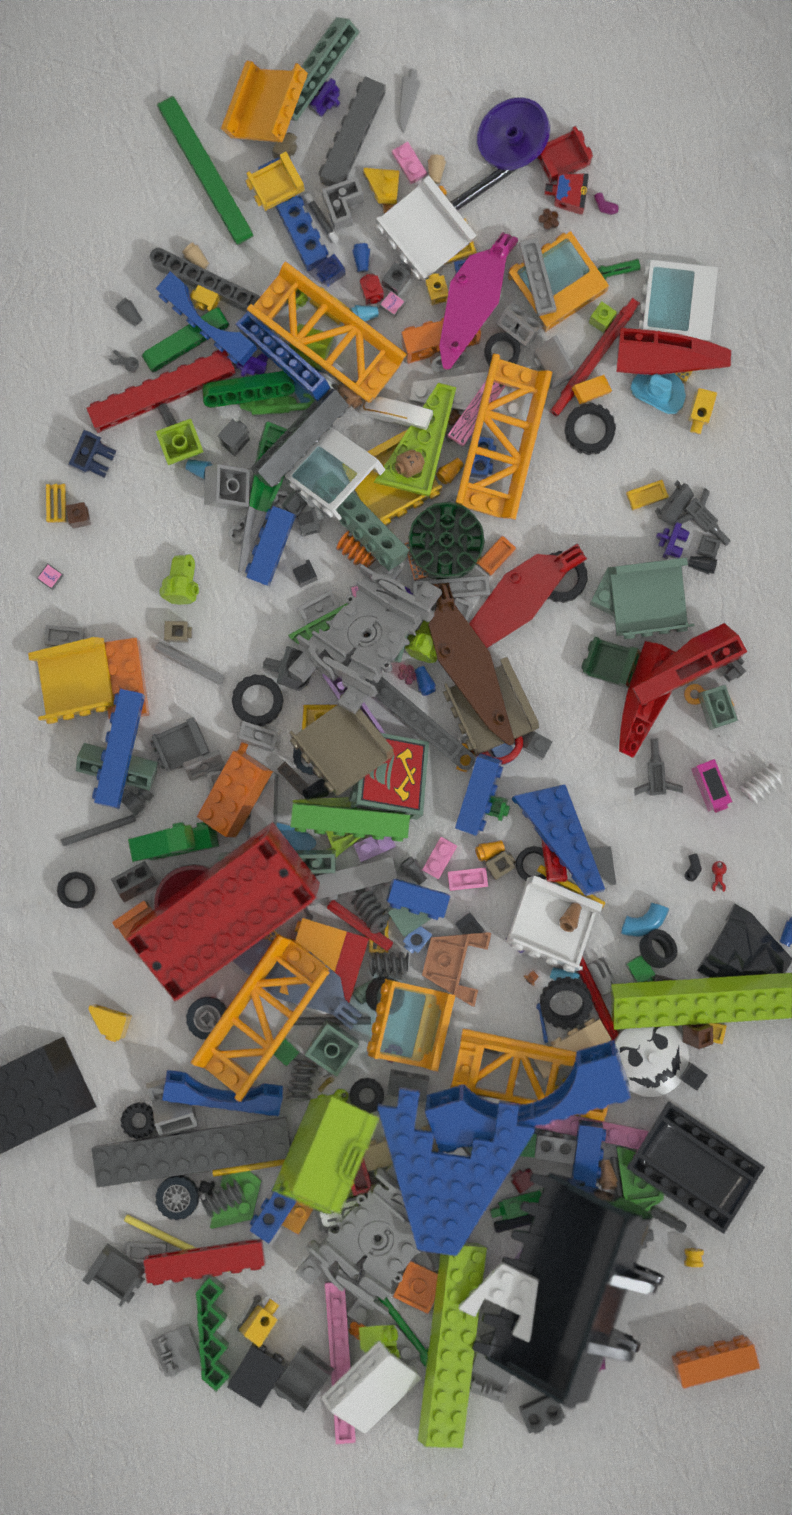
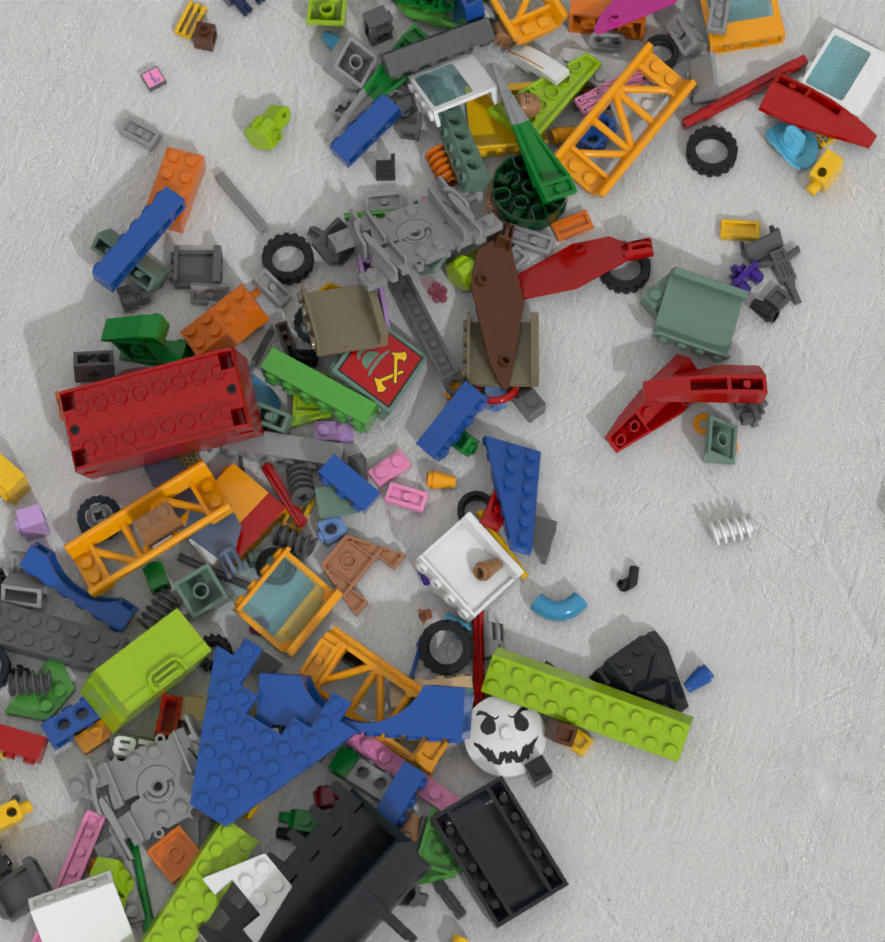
camera: 25 degrees right, 15 degrees down
(74, 679) = (129, 167): yellow panel -> none
(76, 875) = (43, 366): black tyre -> none
(98, 830) = (84, 311): dark grey bar -> none
(151, 1052) = (32, 522): none -> lavender brick
(172, 627) = (241, 165): dark tan brick -> none
(243, 1168) = (60, 666): yellow bar -> none
(269, 1014) = (158, 524): none -> medium nougat brick
(424, 681) = (451, 306): blue cone -> none
(454, 519) = (543, 167): none -> green plate
(469, 925) = (387, 537): black panel -> none
(493, 867) = (440, 492): dark tan brick -> none
(591, 389) = (728, 117): light orange tile -> none
(602, 317) = (767, 59): lime brick -> none
(610, 662) = (635, 359): dark green panel -> none
(632, 265) = (817, 28): green pin -> none
(640, 969) = (533, 647): green brick -> none
(656, 775) = (630, 487): dark grey piece -> none
(666, 942) = (551, 642): black tyre -> none
(712, 786) = (680, 507): dark pink brick -> none
(719, 871) = (652, 593): red arm -> none

